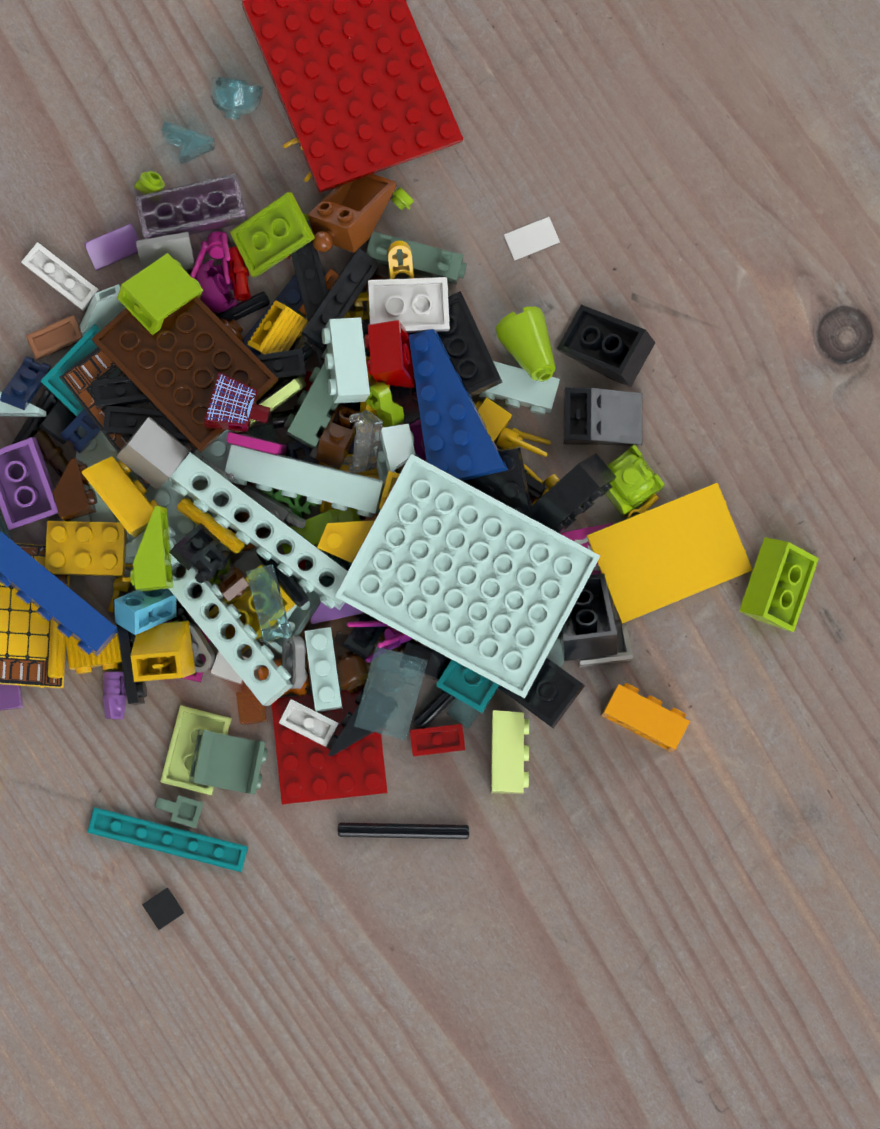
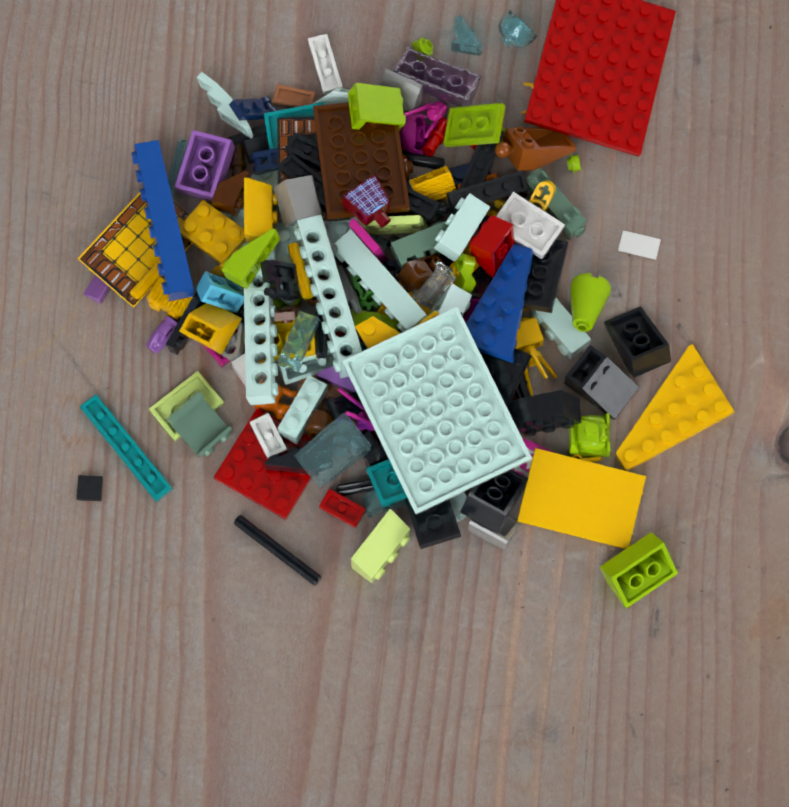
camera: 40 degrees right, 10 degrees down
(112, 246) = (370, 67): medium lavender slope -> none
(184, 811) = (148, 436): sand green plate -> none
(250, 708) = (238, 404): clear orange brick -> none
(294, 660) = (287, 390): light grey plate -> none
(646, 717) = (487, 588): light orange brick -> none
(699, 385) = (680, 409): none -> yellow wing

